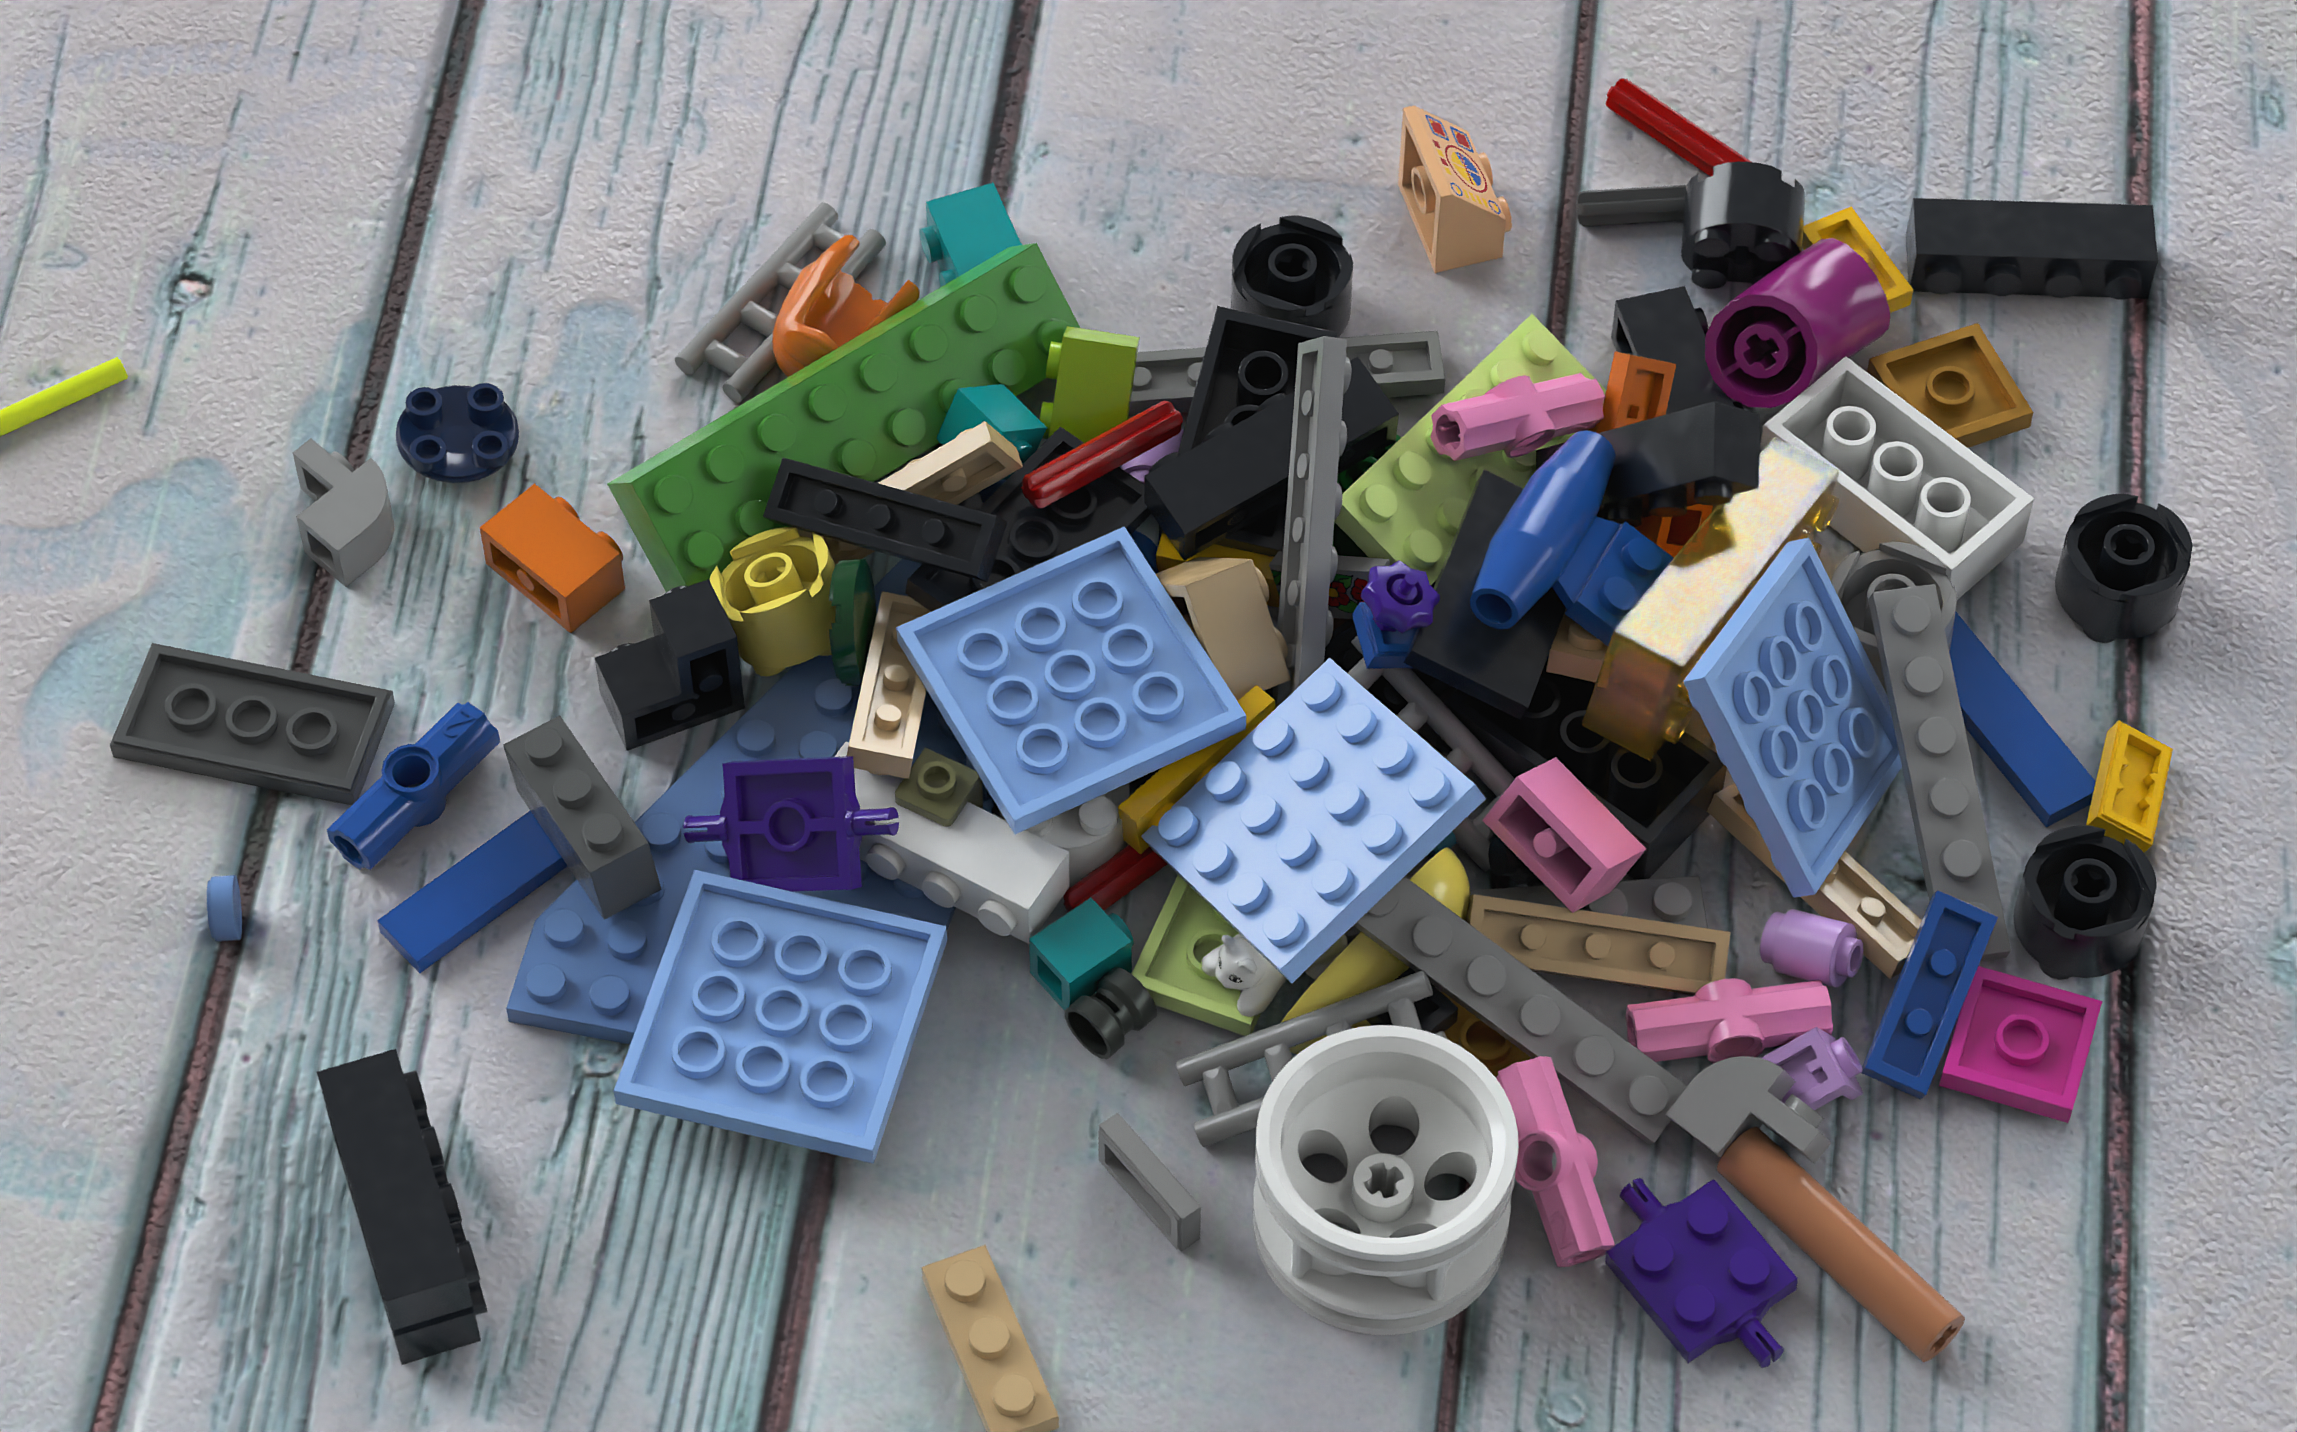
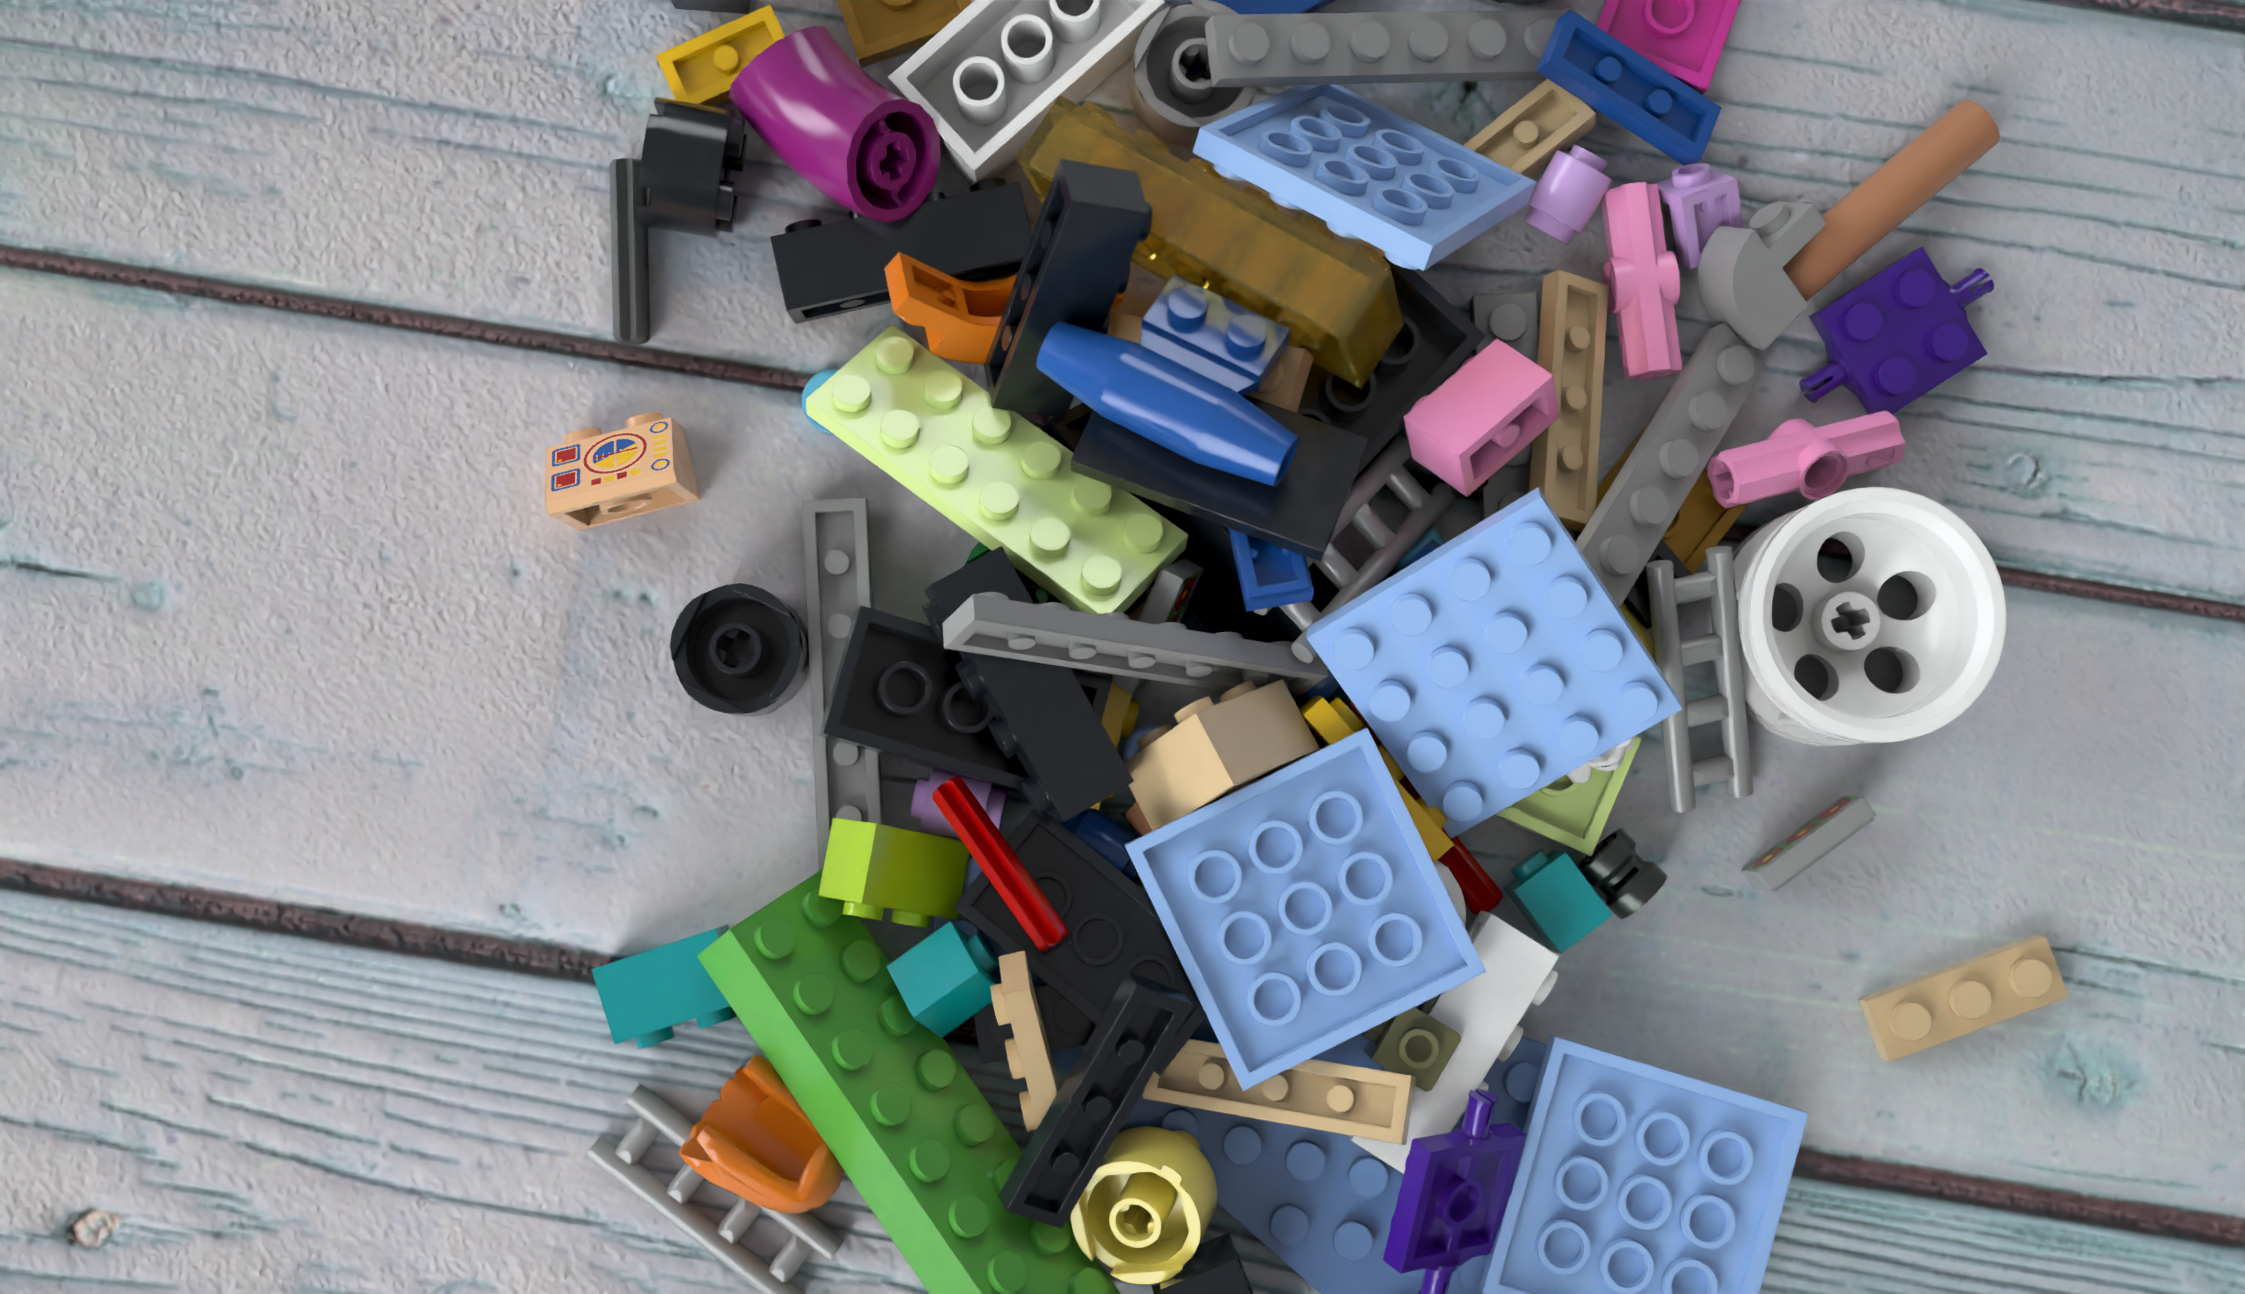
camera: 90 degrees left, 30 degrees up
(854, 620) = (1199, 1133): dark green tile -> none
(1400, 597) = (1268, 559): dark purple piece -> none
(1517, 416) = (975, 422): bright pink piece -> none
(1669, 127) = (535, 226): red axle -> none

